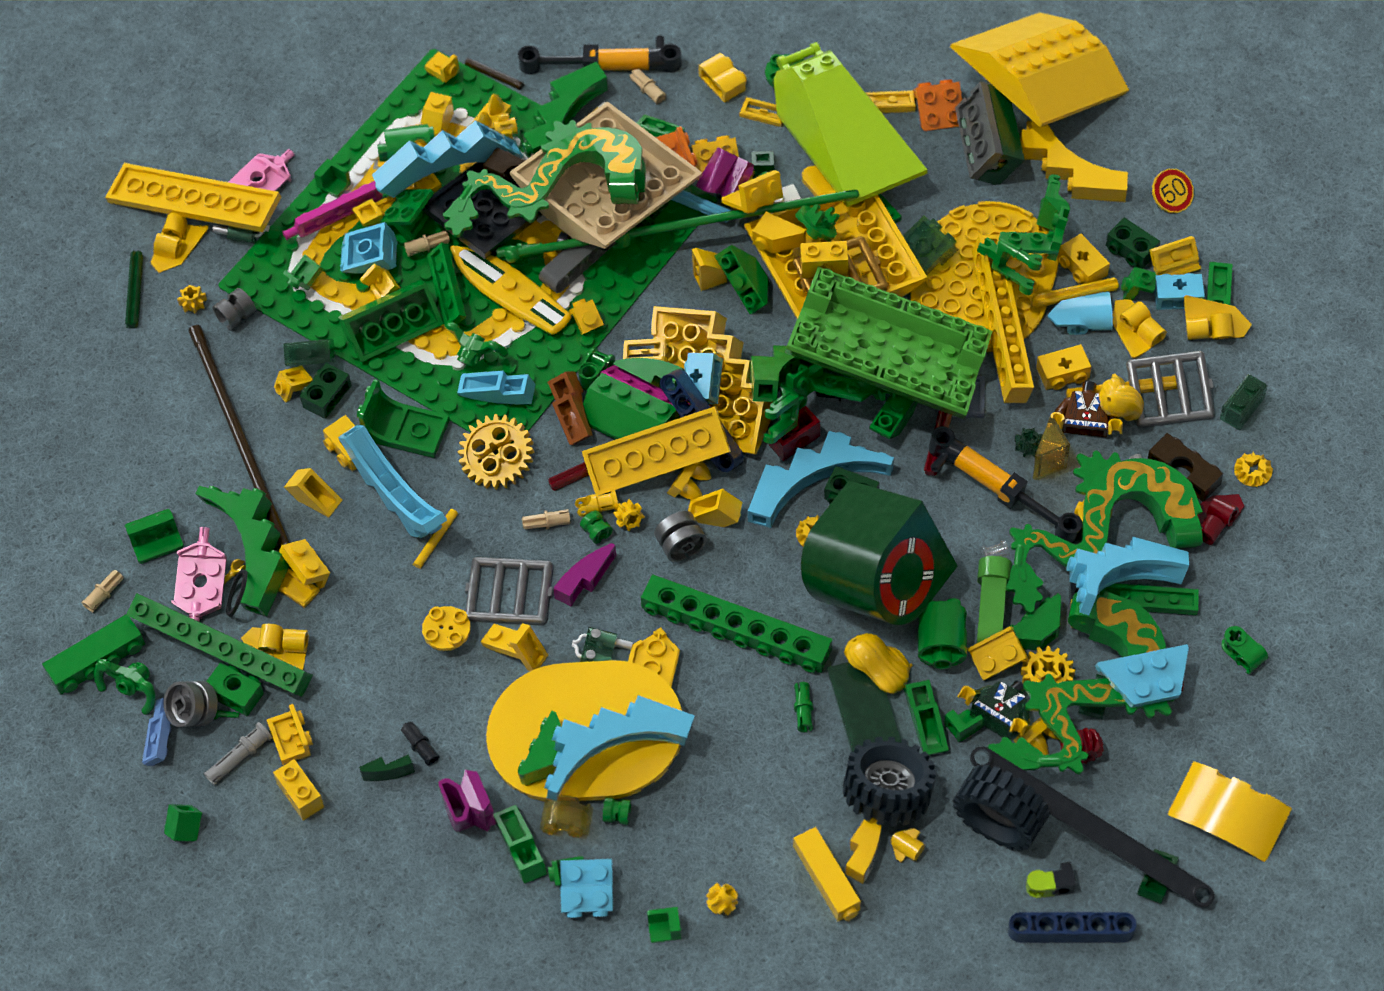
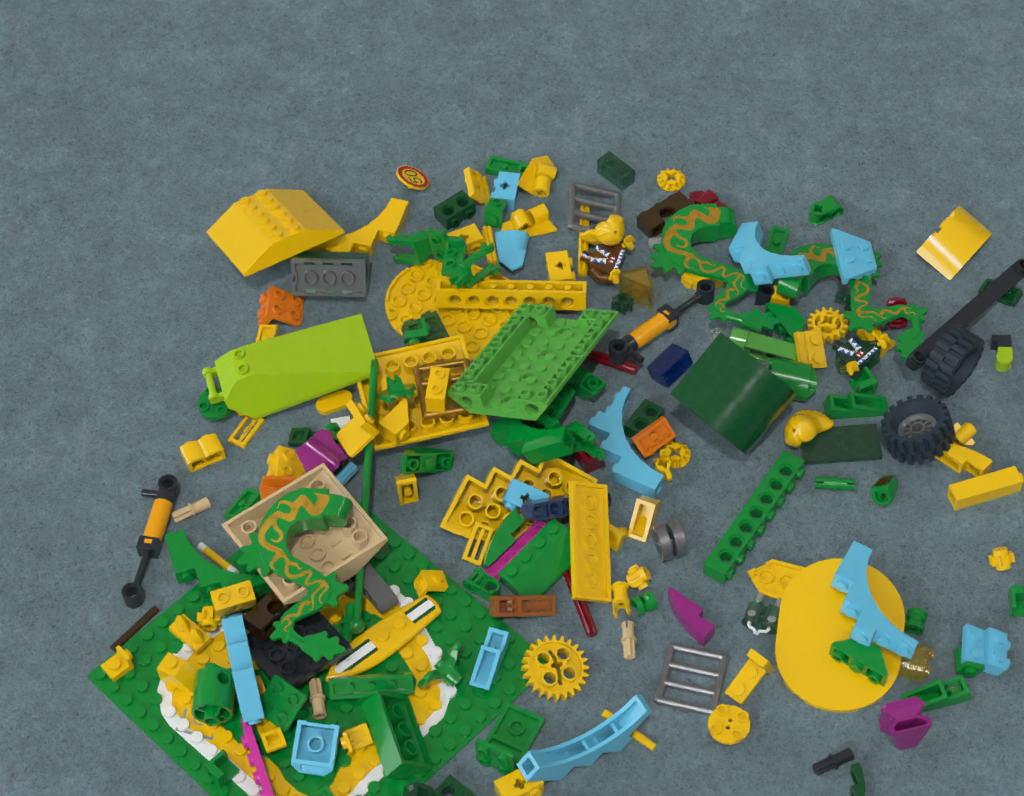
camera: 80 degrees left, 5 degrees down
(518, 133) = (233, 598): none -> yellow brick
(785, 518) = (663, 466): none -> yellow piece
(803, 761) = (884, 490): none -> green rock
(817, 493) = (653, 437): none -> orange bracket
(917, 235) = (416, 336): none -> green bracket
(946, 504) = (670, 365): none -> clear blue brick

